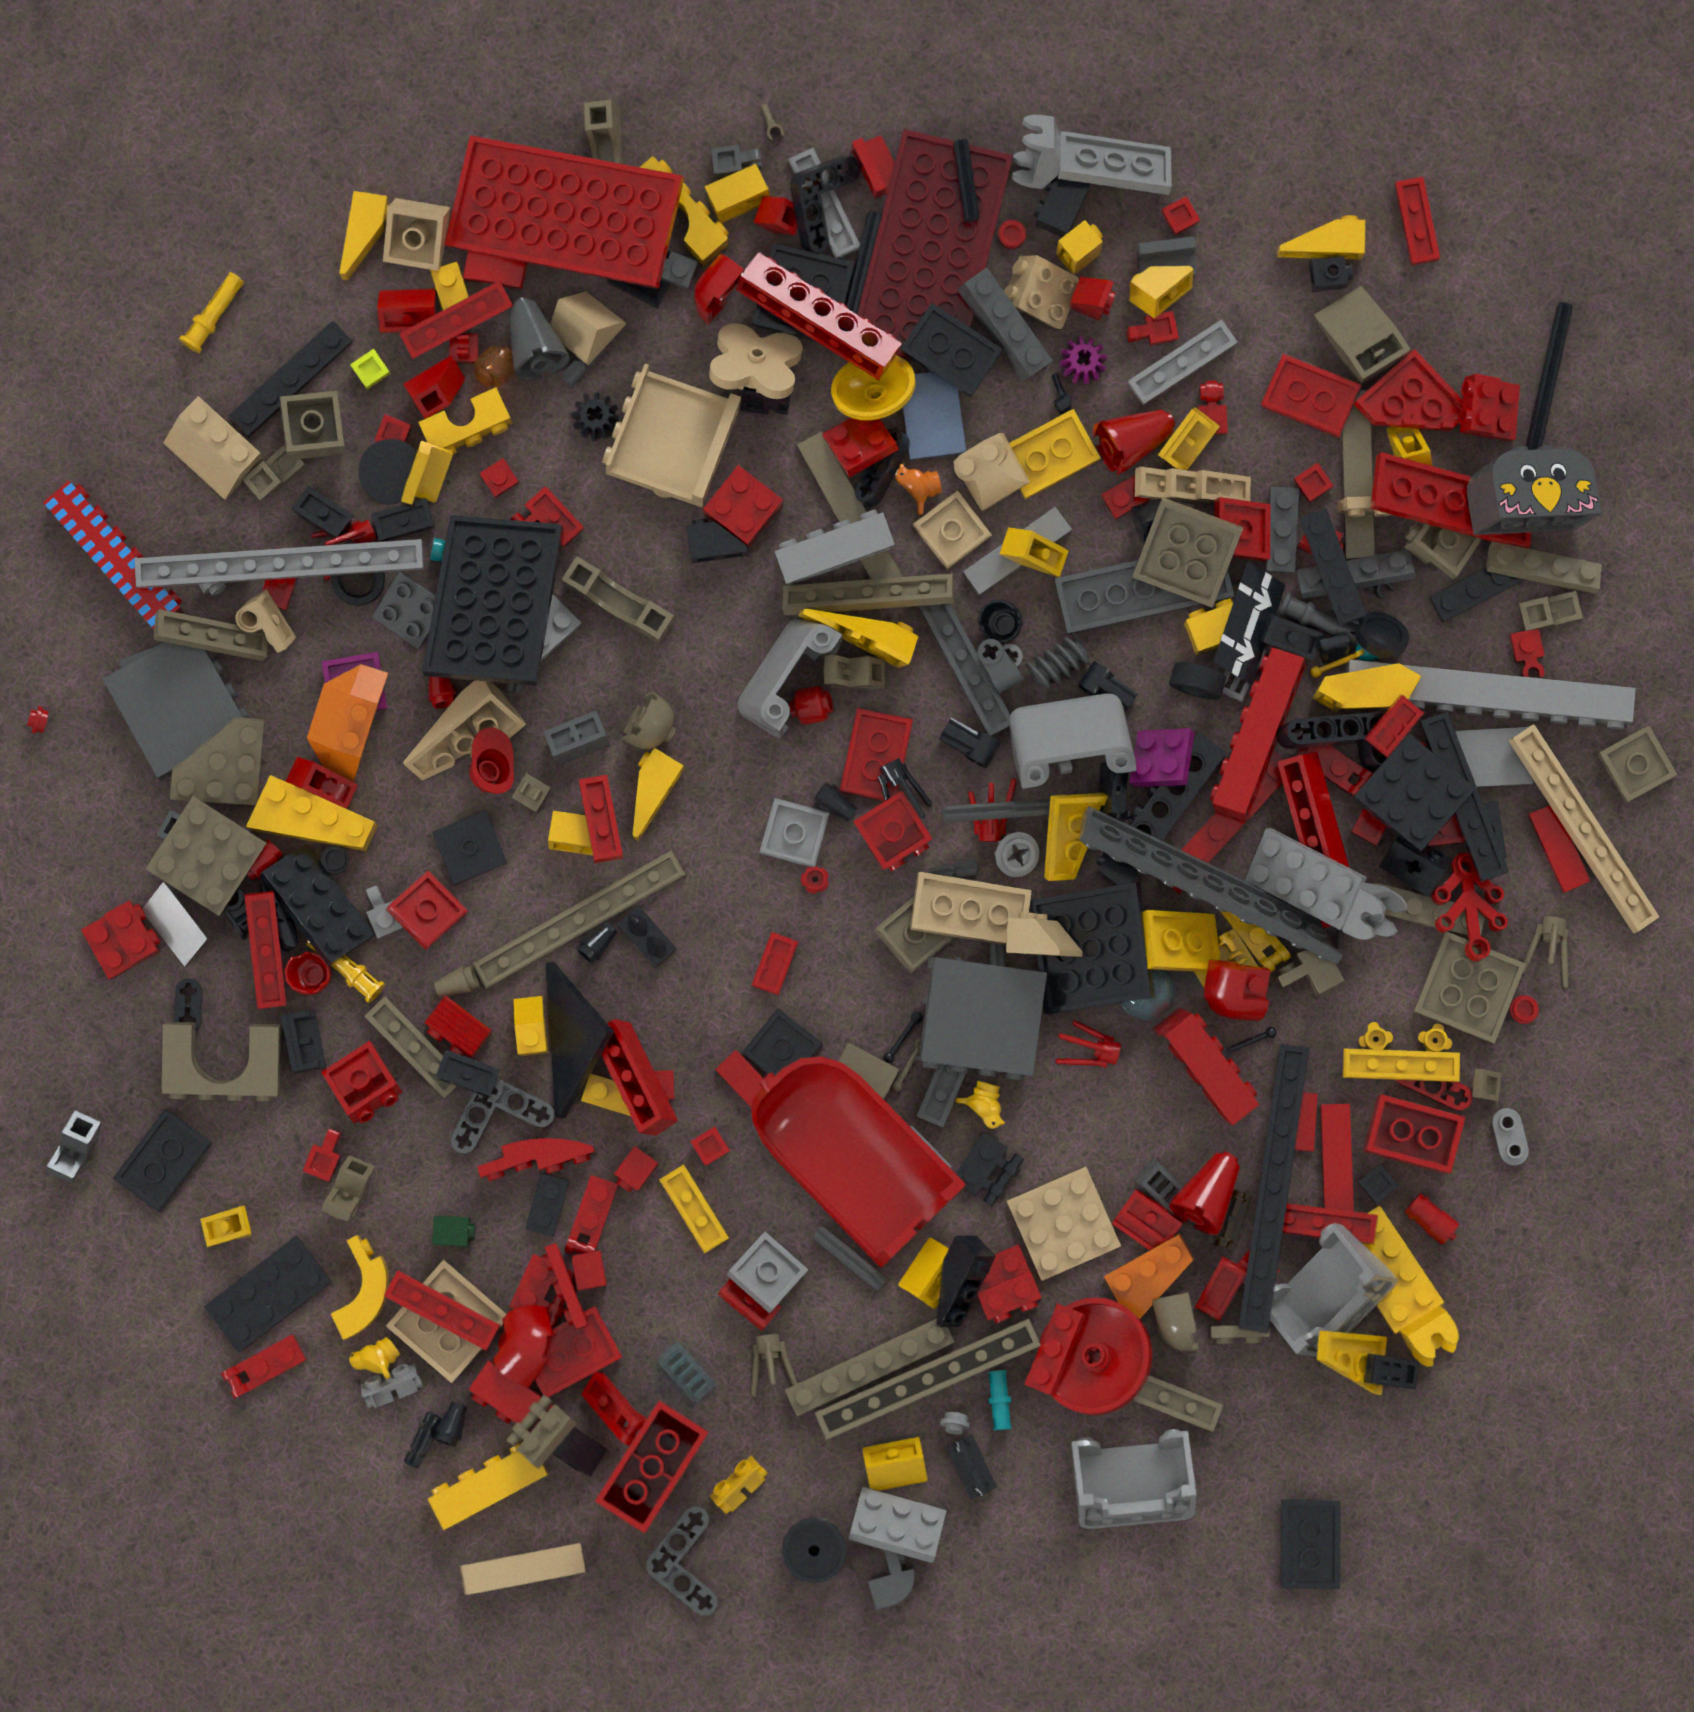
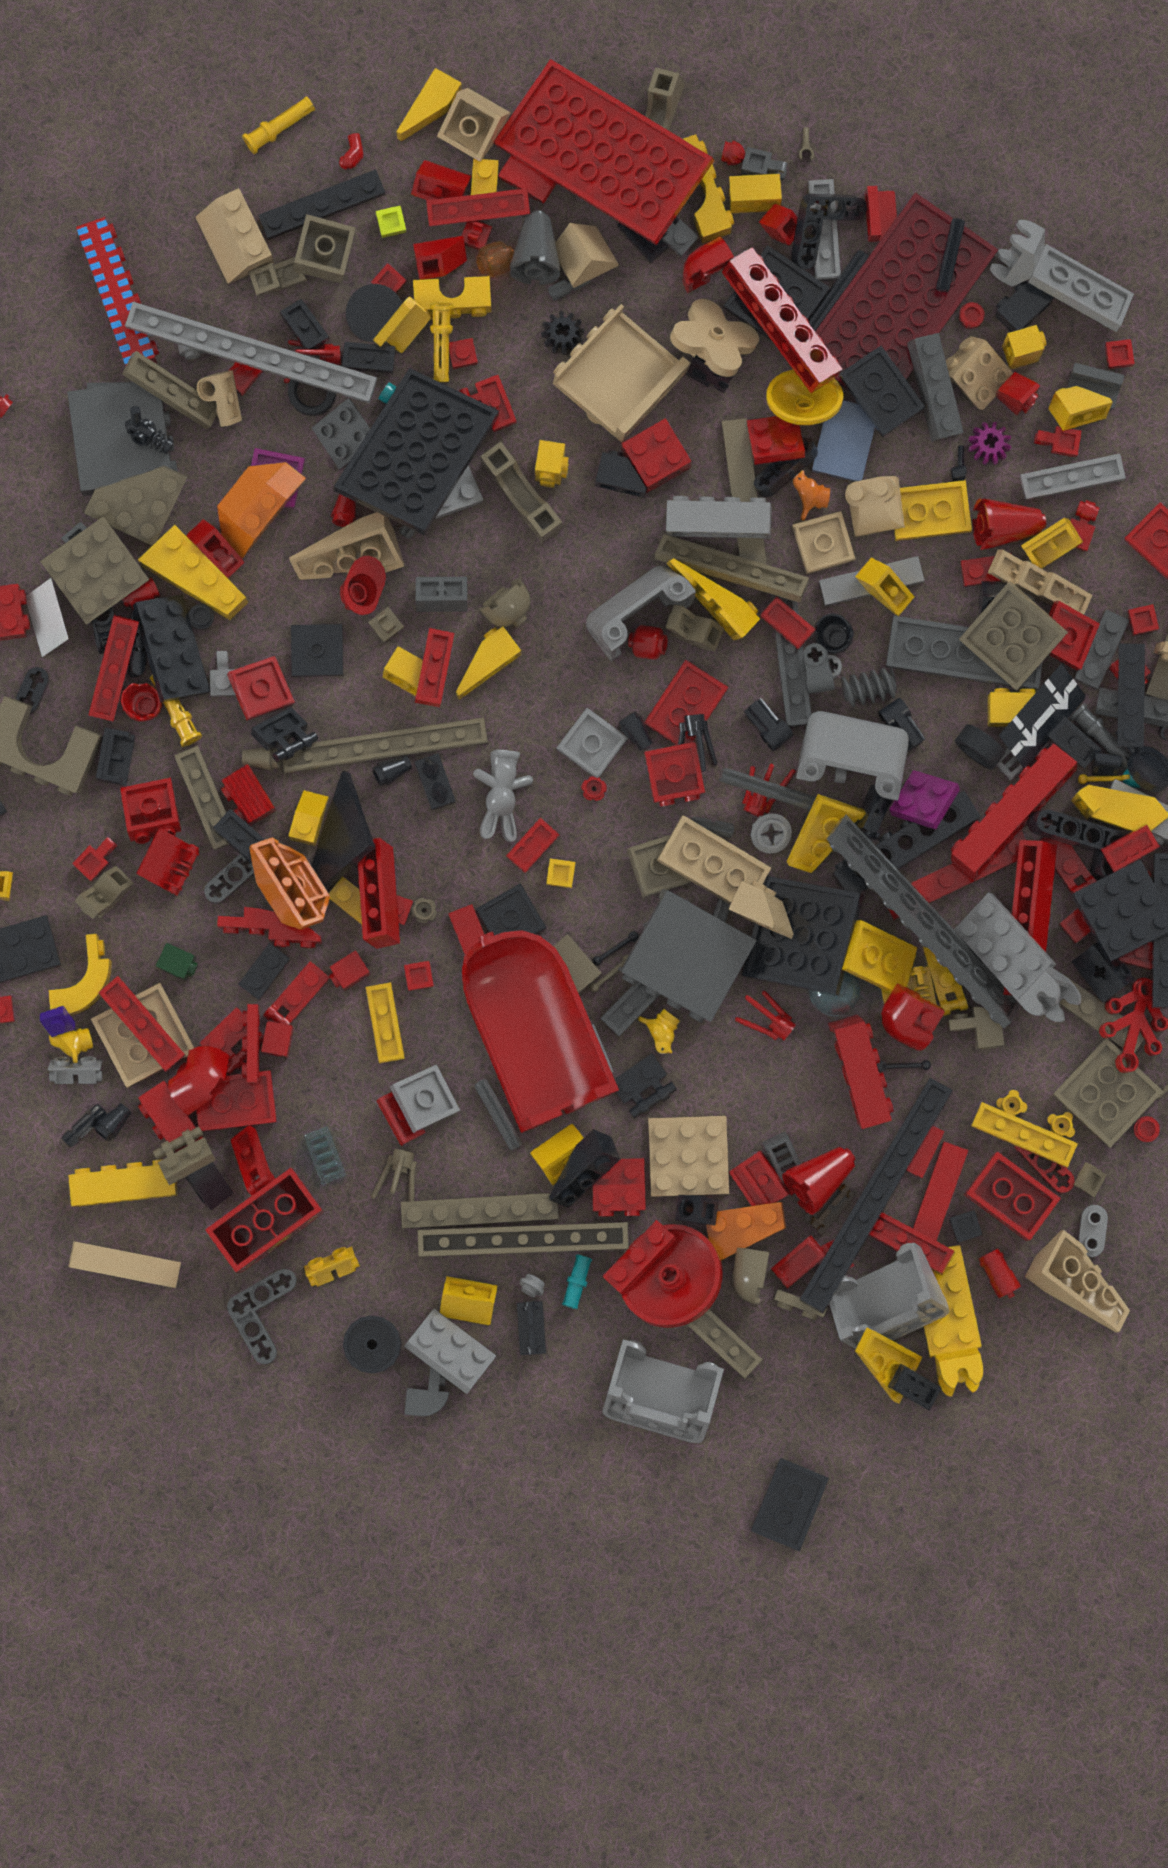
camera: 20 degrees right, 0 degrees up
(200, 690) = (144, 432): none -> black piece
(304, 313) = (354, 154): none -> red arm
(352, 1342) = (57, 1021): none -> dark purple plate
(402, 1130) = (168, 861): none -> red hinge
(464, 945) = (280, 728): none -> black plate
(465, 462) = (442, 326): none -> yellow pin
(538, 1104) = (289, 884): none -> orange wedge
(637, 558) = (551, 463): none -> yellow brick
(696, 1075) = (429, 905): none -> dark tan plate
(698, 160) = (733, 153): none -> red plate
(723, 928) = (501, 799): none -> light grey animal
(815, 981) = (560, 873): none -> yellow plate
(948, 629) = (787, 623): none -> red tile
(1094, 1276) = (696, 1210): none -> black brick
(1508, 1194) = (1072, 1278): none -> tan wedge

